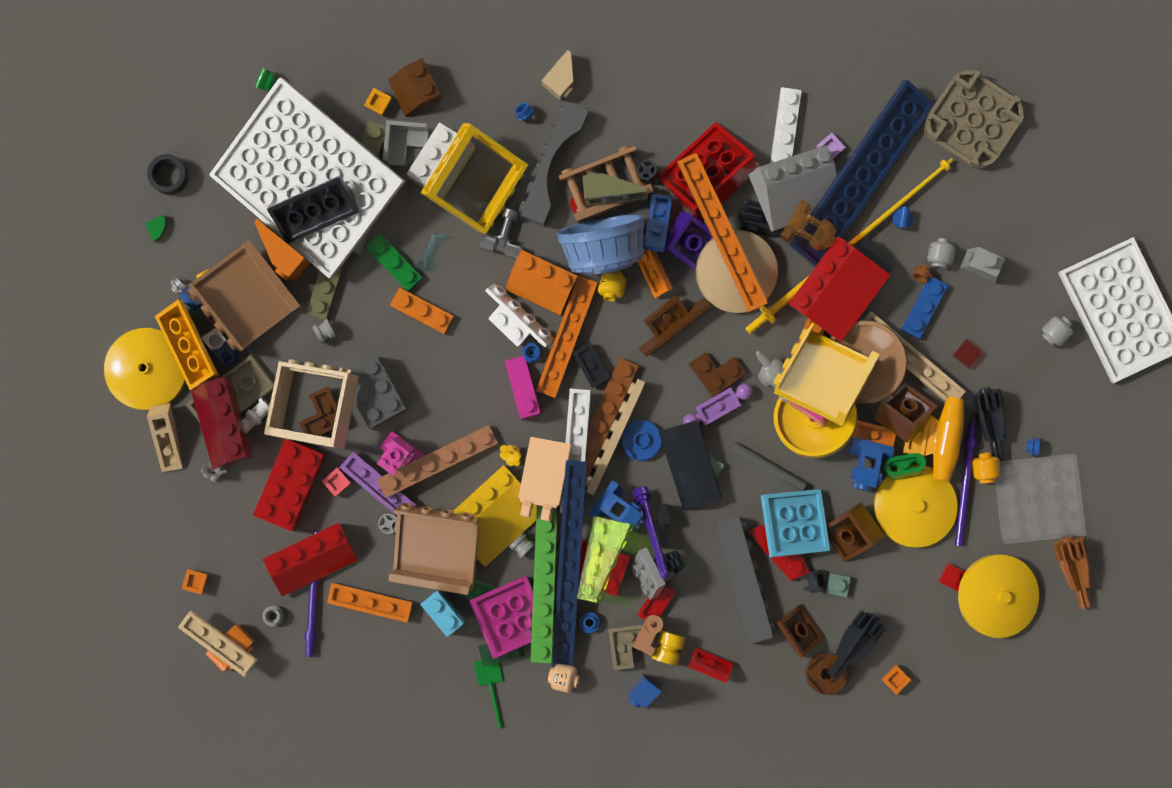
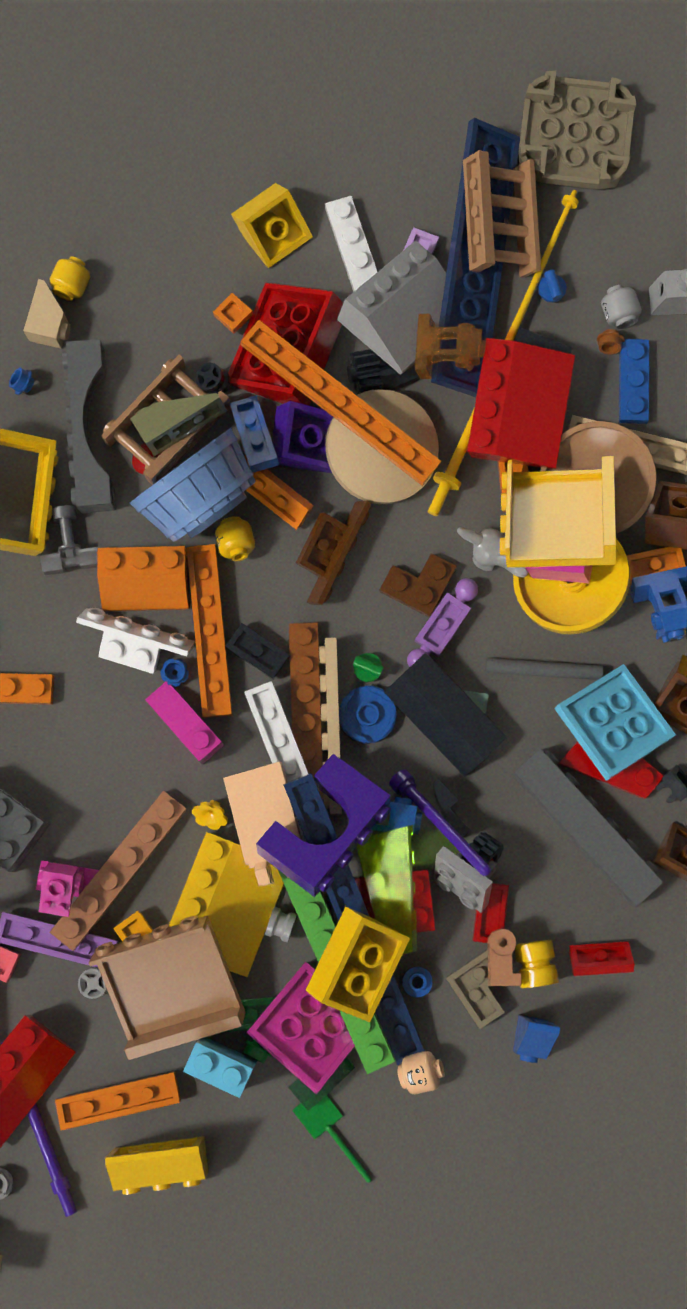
camera: 25 degrees left, 5 degrees down
(376, 653) = (157, 1165): none -> yellow slope
(429, 500) = (134, 924): none -> light orange plate
(469, 615) = (256, 1051): none -> green plate
(557, 593) = (357, 964): none -> yellow slope
(560, 519) = (312, 864): none -> dark purple arch
(588, 57) = (69, 278): none -> yellow head
(656, 410) = (367, 667): none -> green plate
(684, 133) = (233, 313): none -> orange plate
(739, 85) = (272, 224): none -> yellow slope
(877, 147) = (479, 214): none -> medium nougat fence

